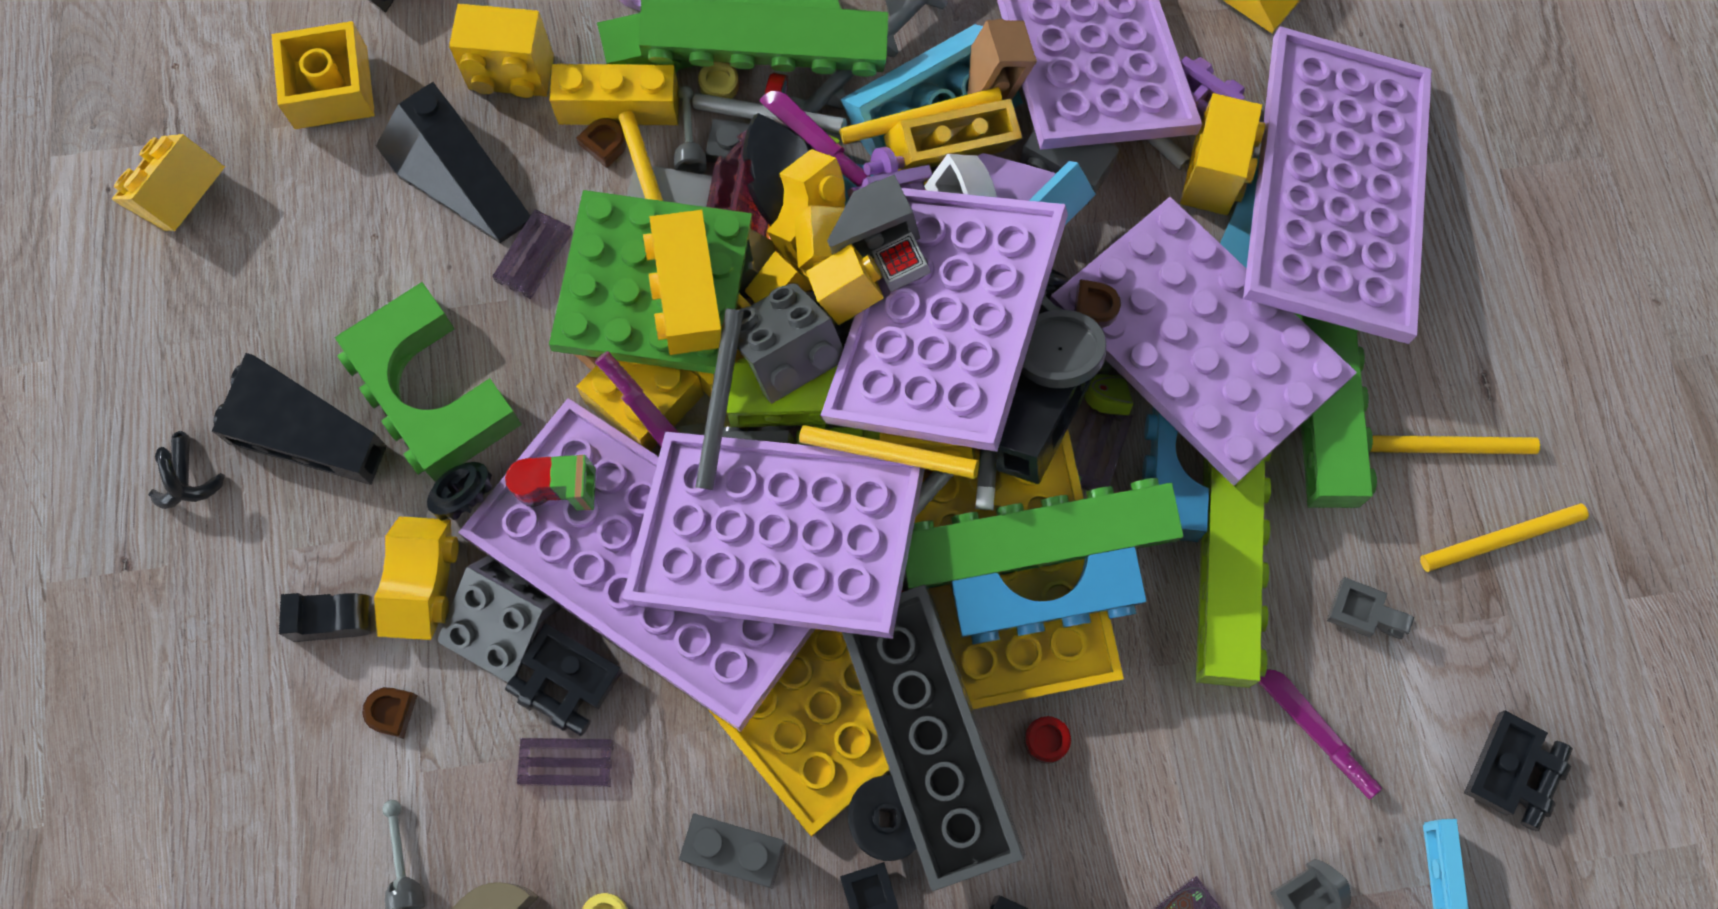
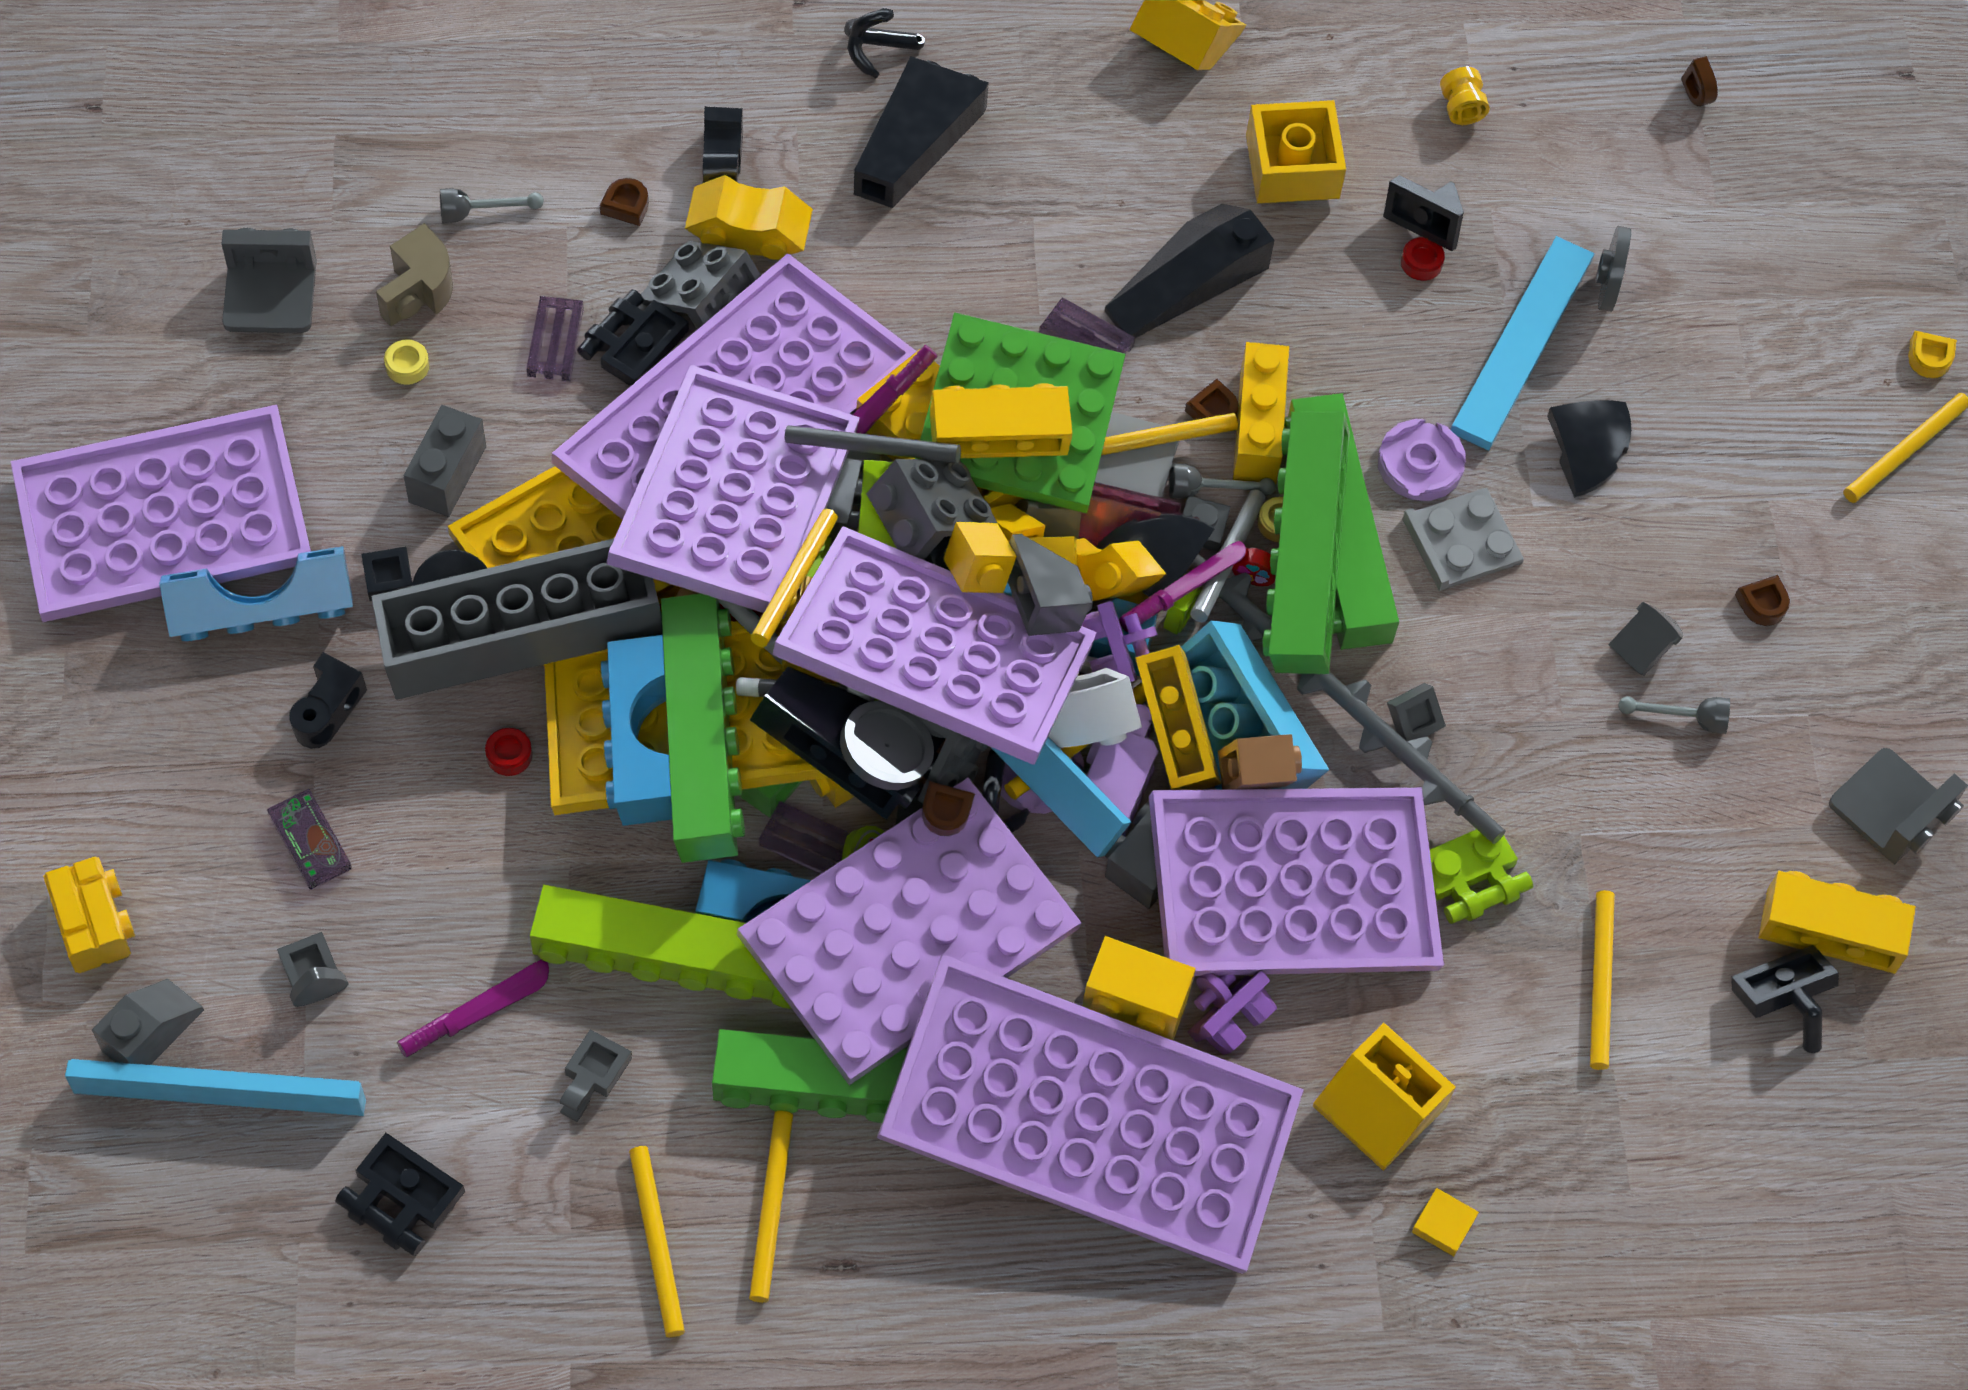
camera: 90 degrees right, 10 degrees down
(380, 351) = (980, 195): bright green arch -> none
(469, 483) = (831, 256): black gear -> none
(502, 50) = (1310, 304): yellow brick -> none
(553, 478) = (824, 314): leg -> none
(884, 124) = (1201, 685): yellow bar -> none
(901, 262) = (999, 609): tile -> none

